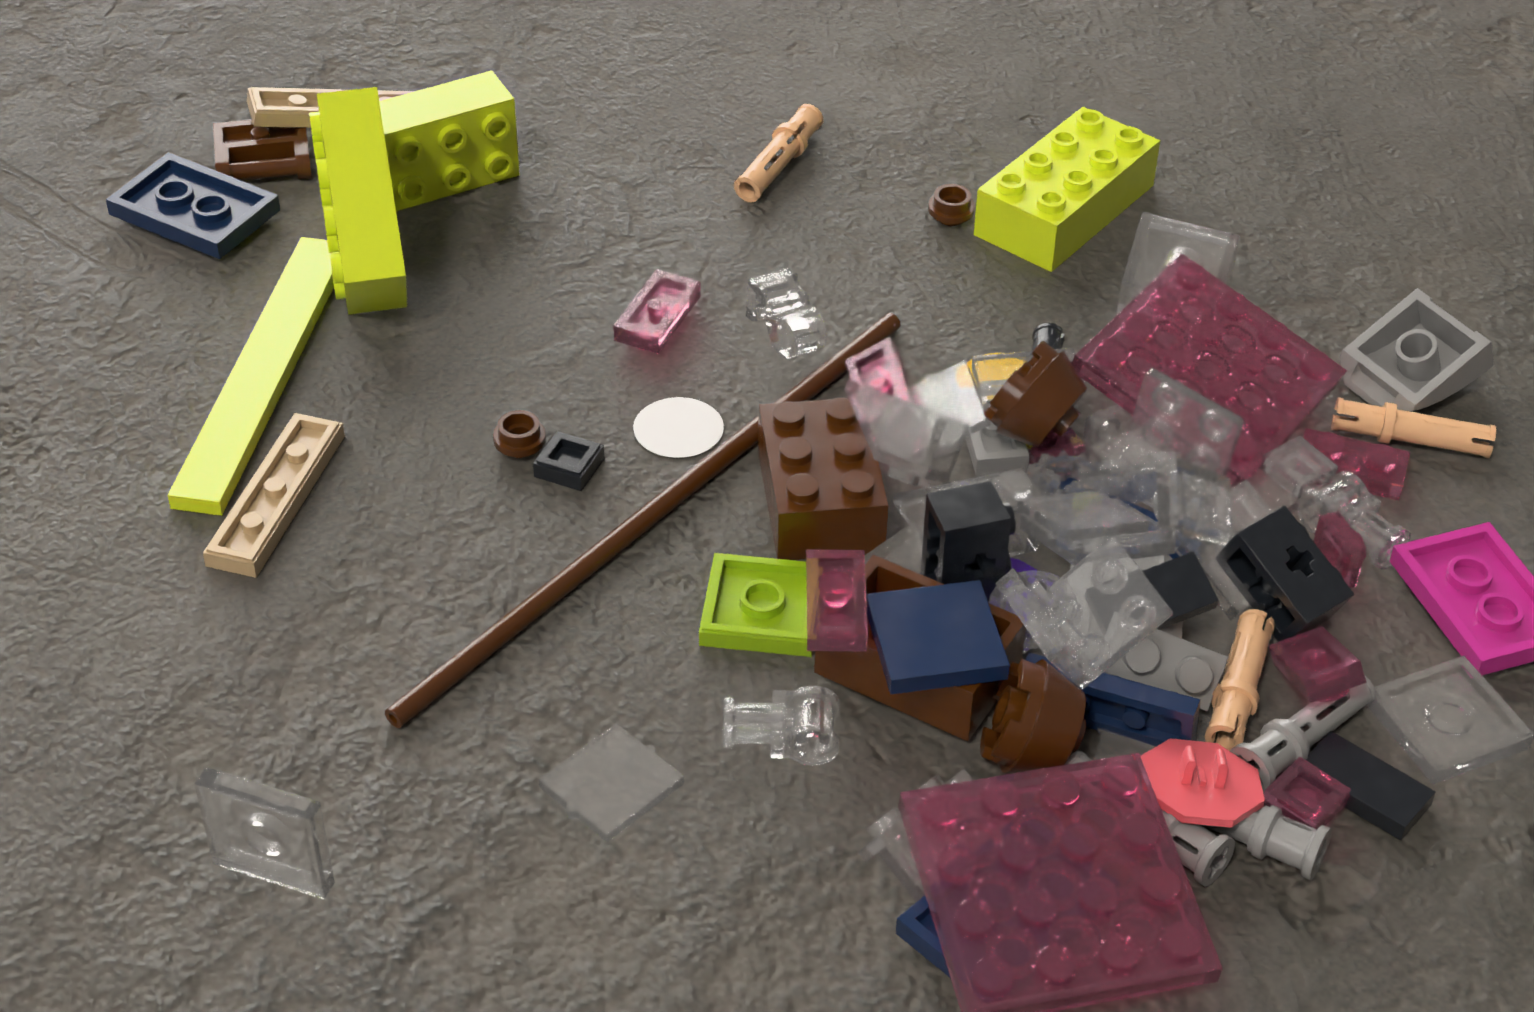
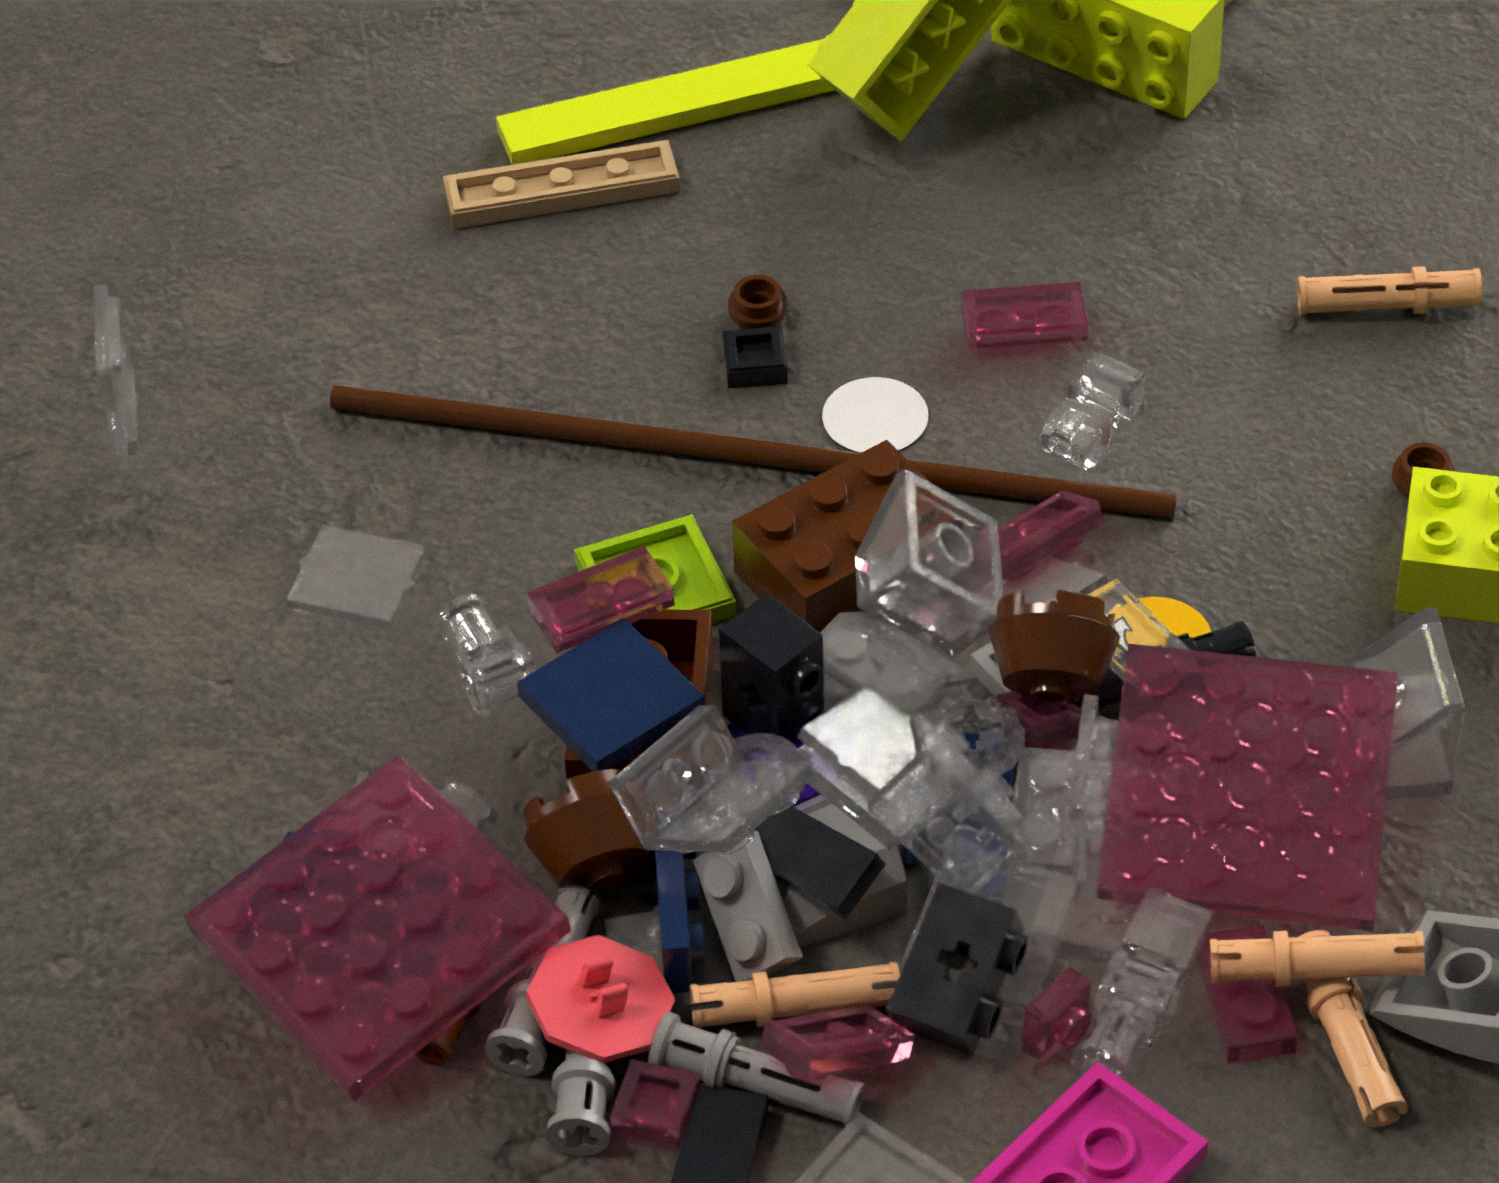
camera: 65 degrees right, 5 degrees up
(1367, 415) = (1316, 957): none -> light nougat pin

